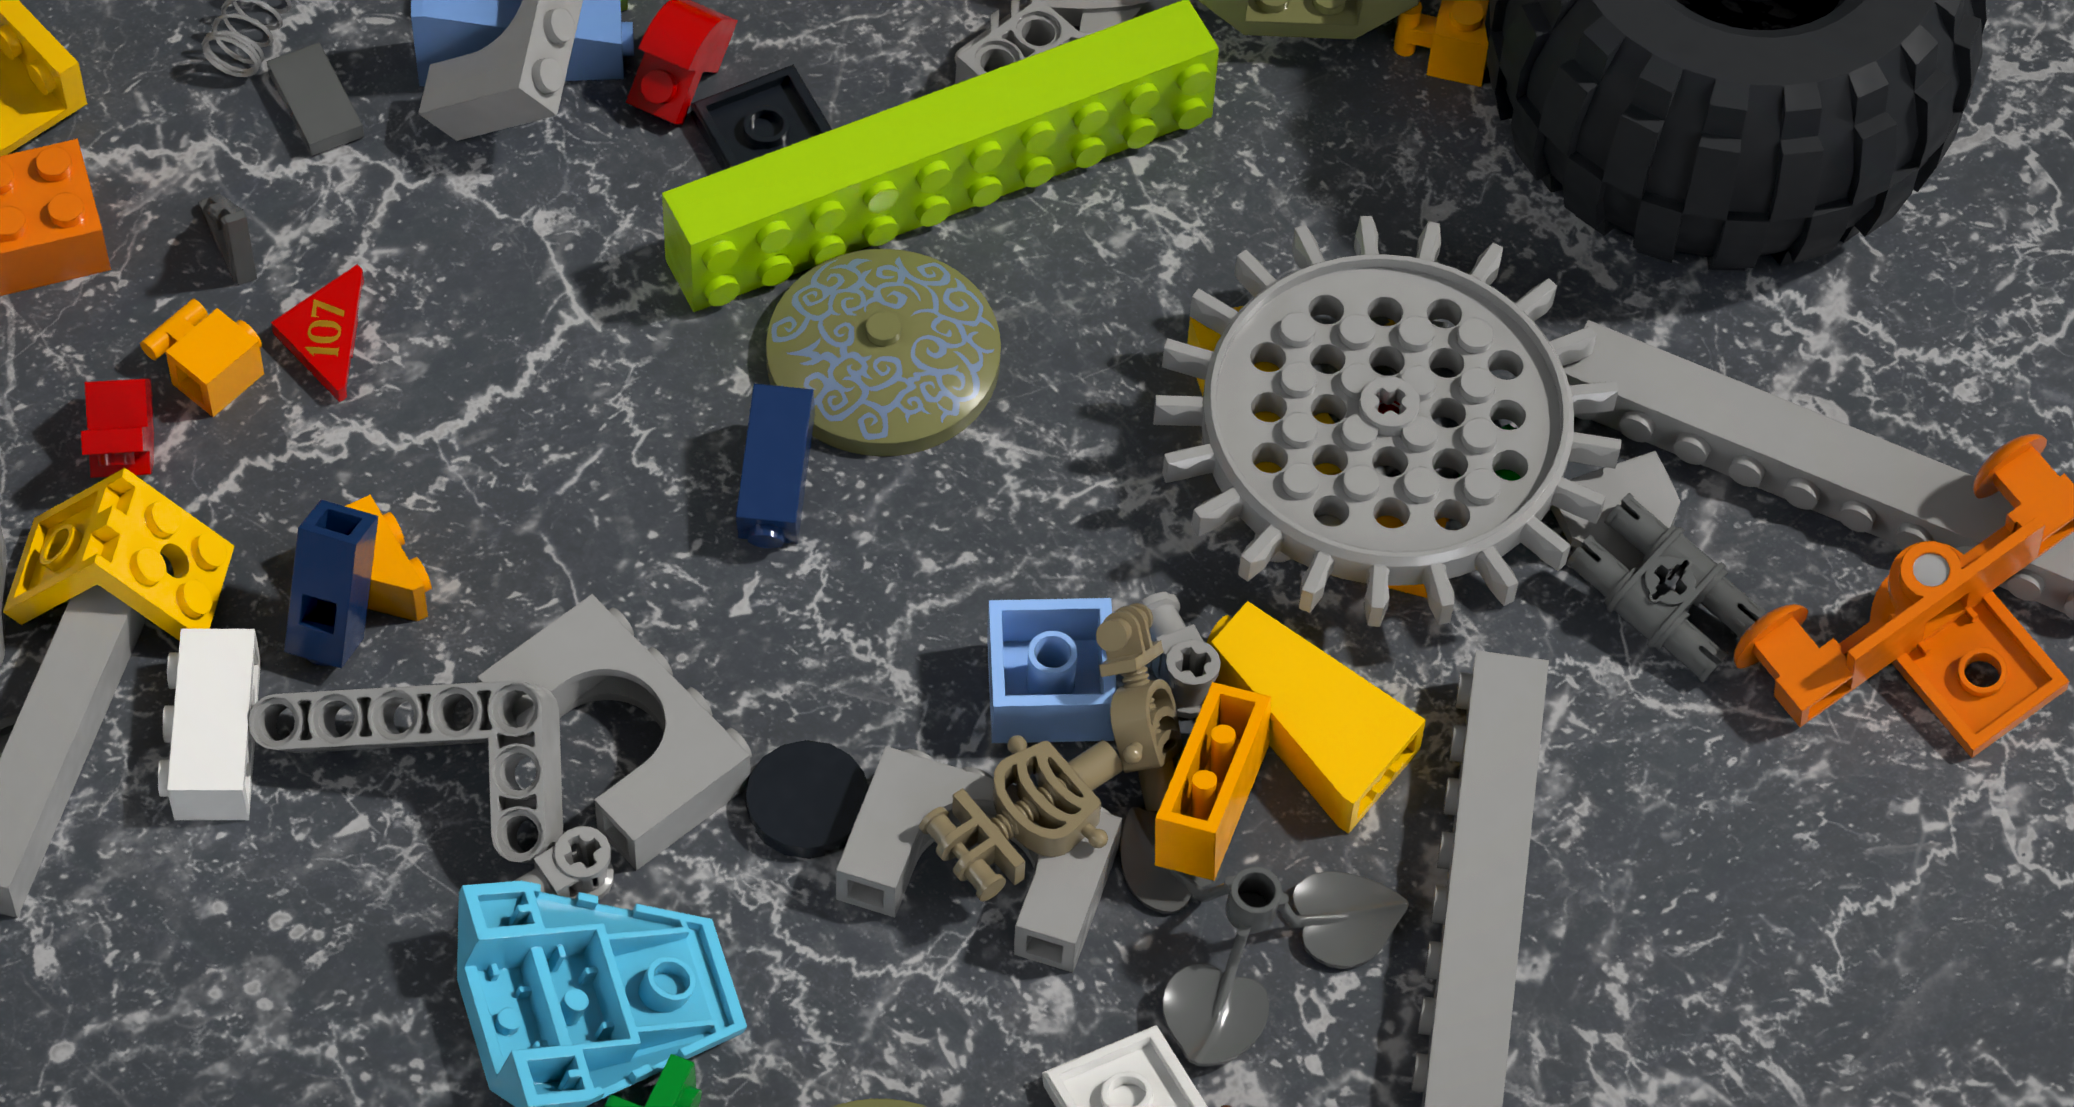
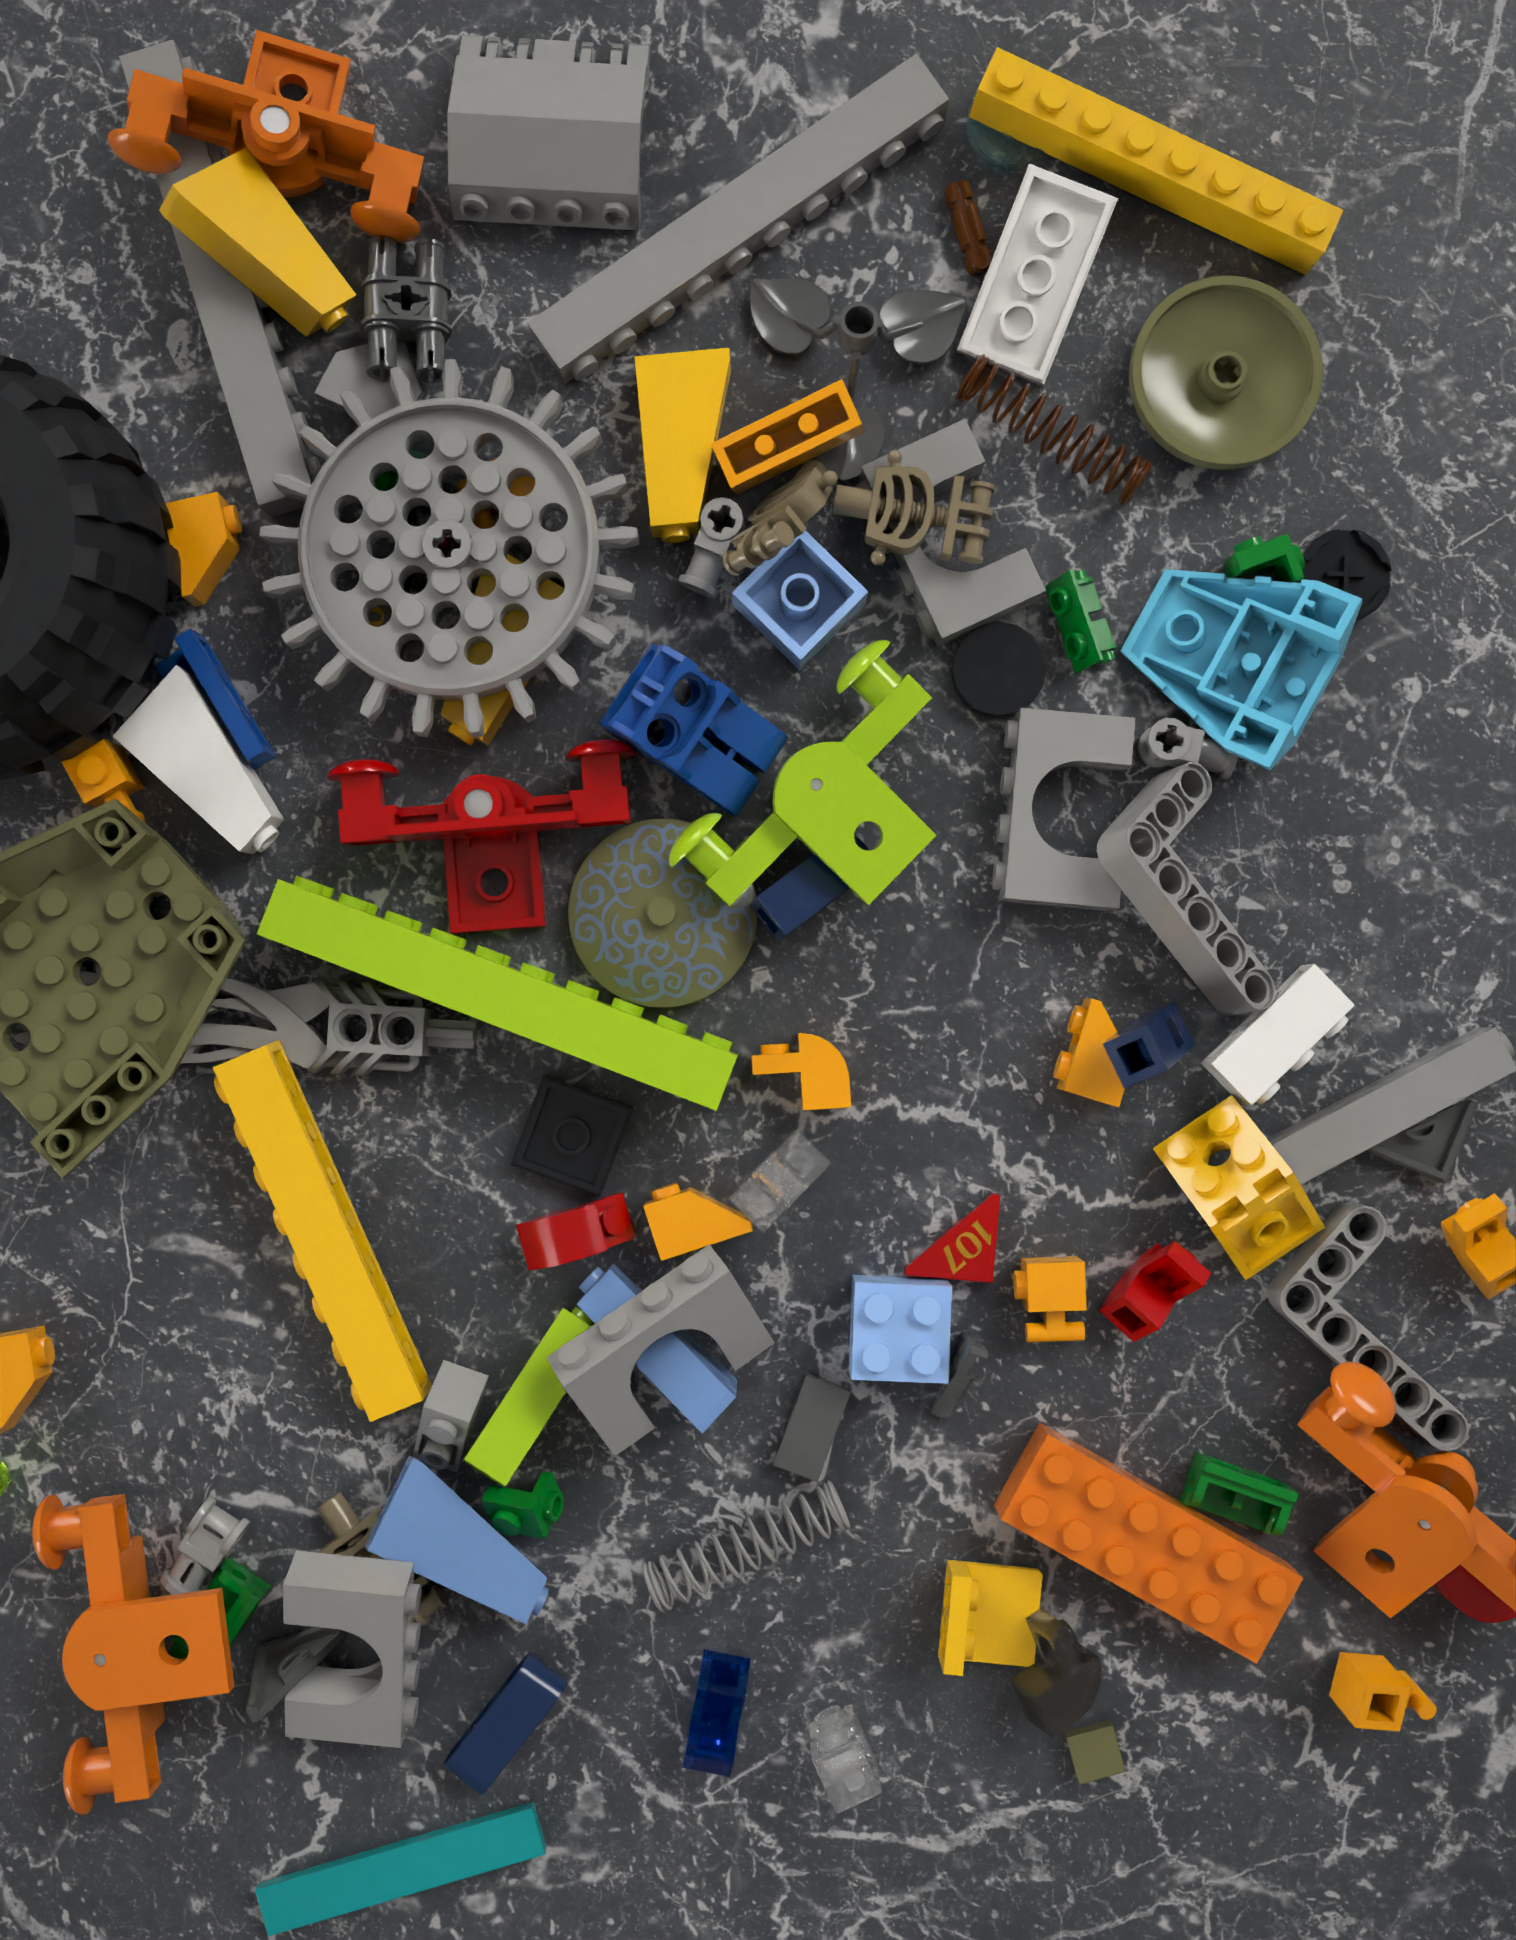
camera: 130 degrees left, 30 degrees up
(319, 214) = (900, 1329): none -> light blue brick
(549, 235) = (779, 1179): none -> clear brick
(590, 148) = (690, 1220): none -> light orange slope
(614, 345) = (821, 1069): none -> light orange brick
(753, 893) = (1072, 600): none -> green hinge
(840, 512) = (826, 796): none -> lime piece
(999, 487) = (709, 711): none -> blue connector
(1106, 1005) = (966, 393): none -> reddish brown piece
(1115, 271) = (486, 828): none -> red piece
(1394, 115) = (196, 756): none -> white slope
(1439, 173) = (199, 659): none -> blue panel
(1603, 268) = (206, 542): none -> light orange slope
(1743, 849) = (546, 134): none -> light grey hinge
(1848, 503) = (260, 240): none -> yellow slope

